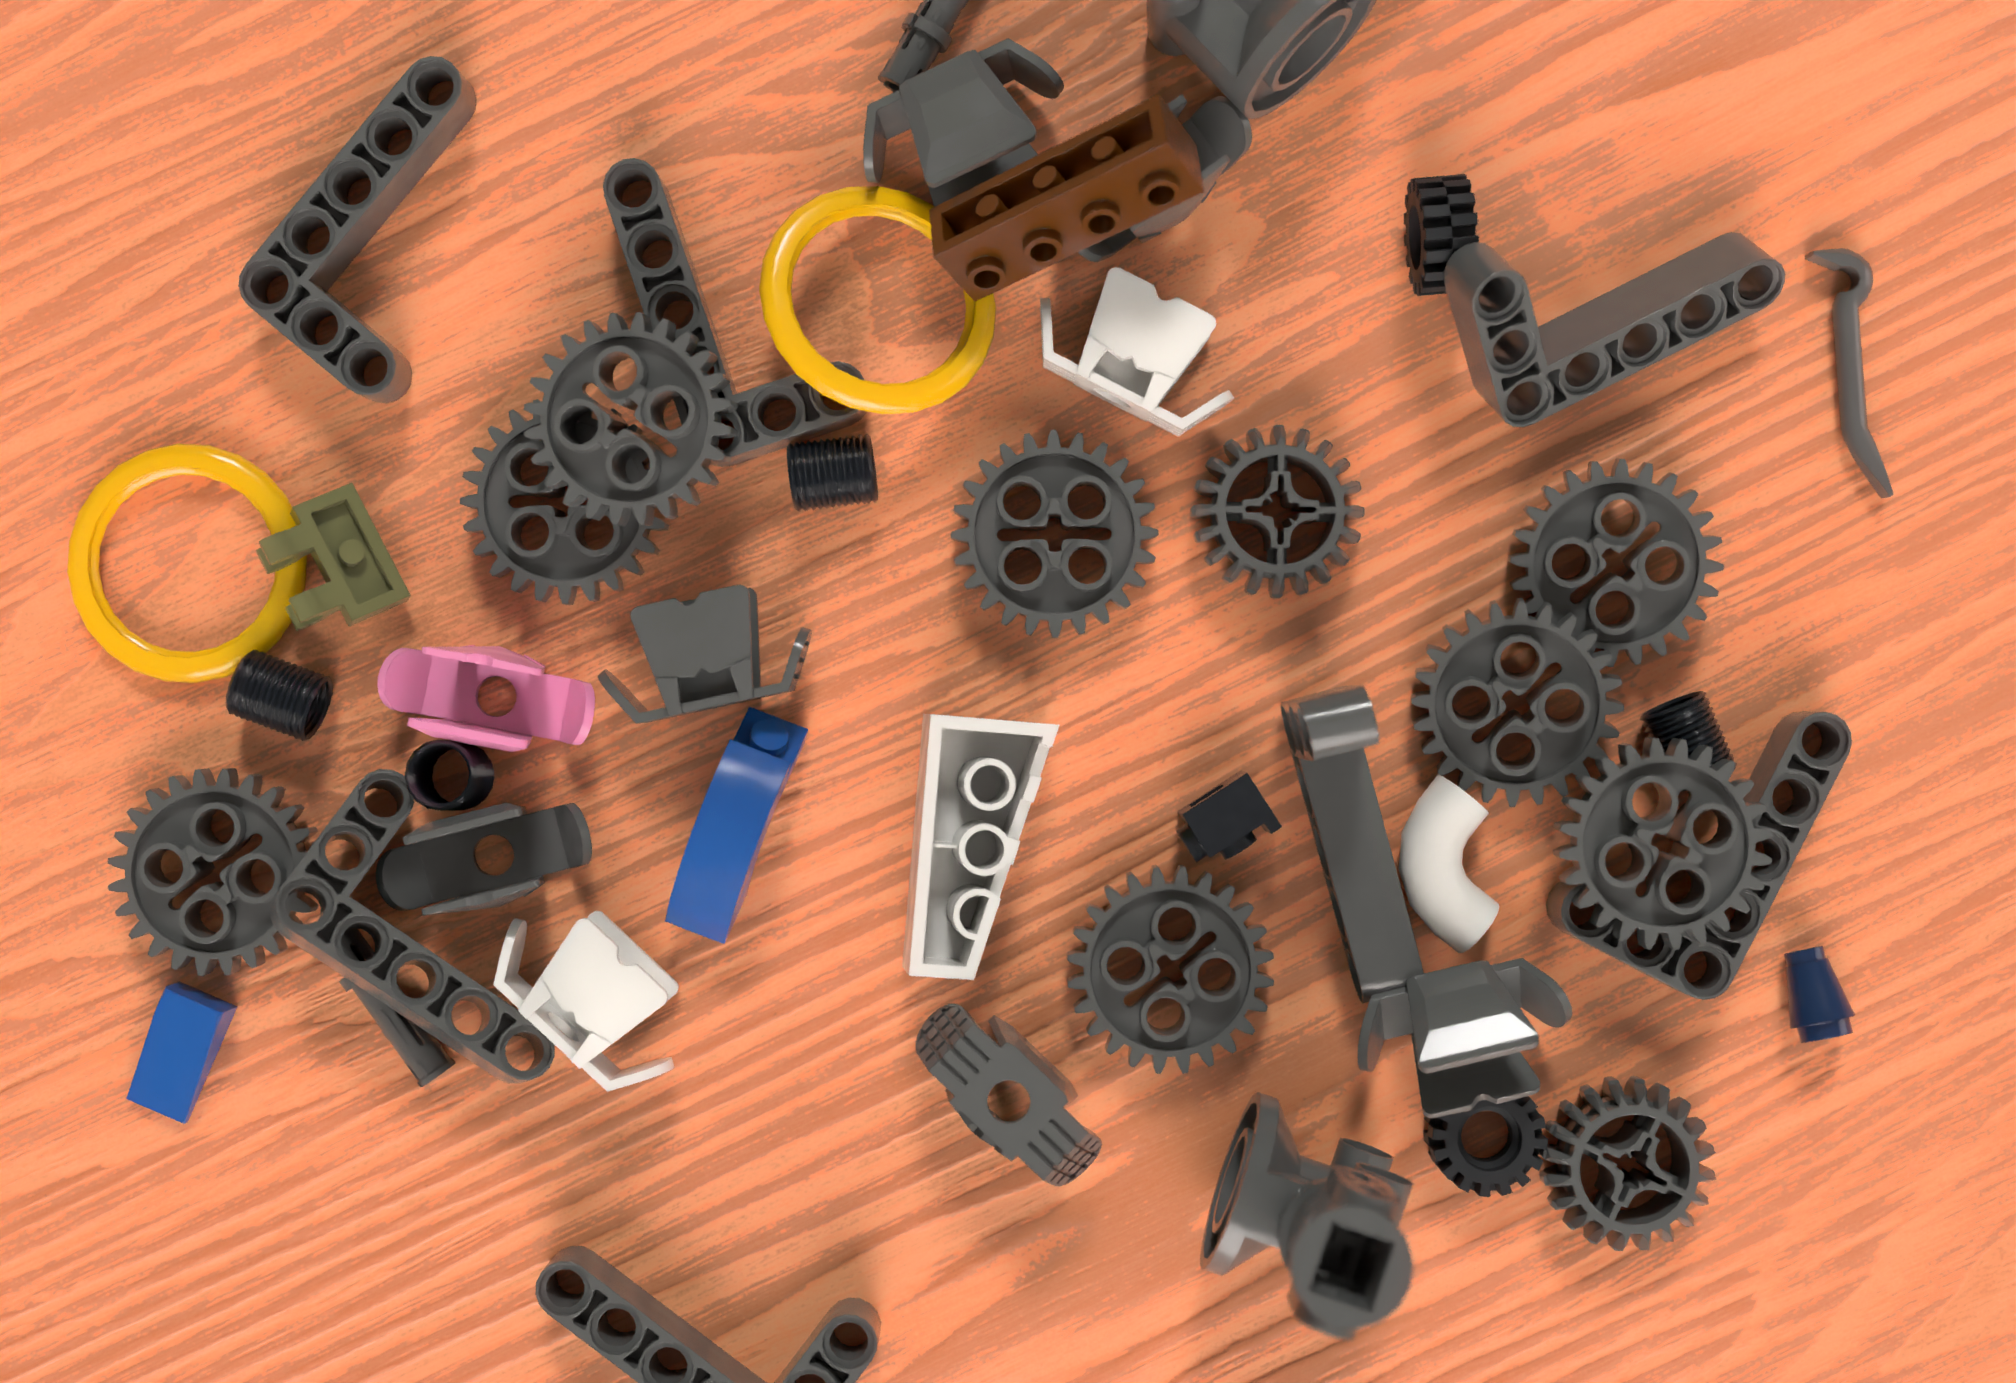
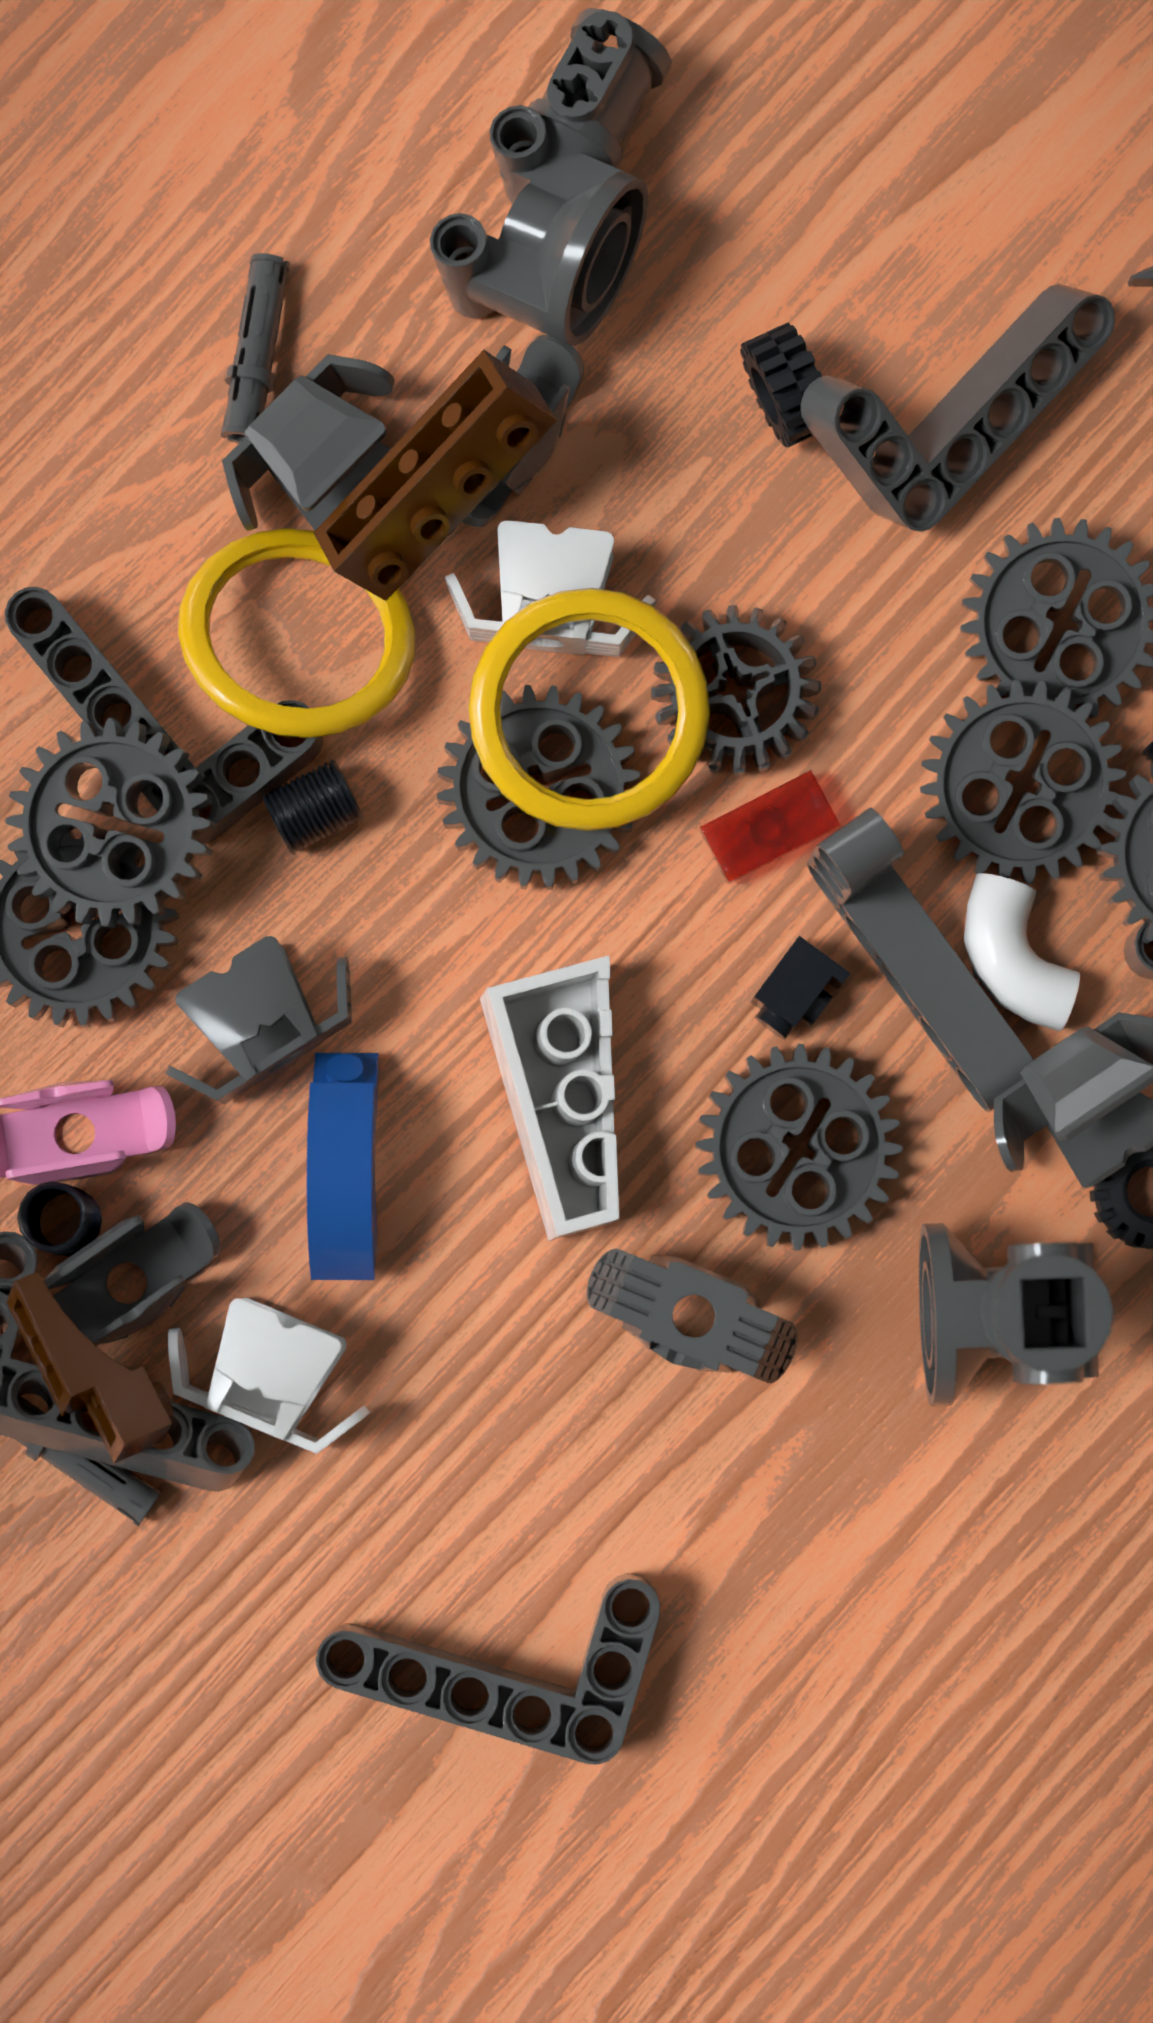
camera: 25 degrees left, 5 degrees down
(438, 984) = (121, 1402): none -> reddish brown slope
(1103, 379) = (487, 695): none -> yellow wedge
(1259, 654) = (769, 827): none -> clear red plate

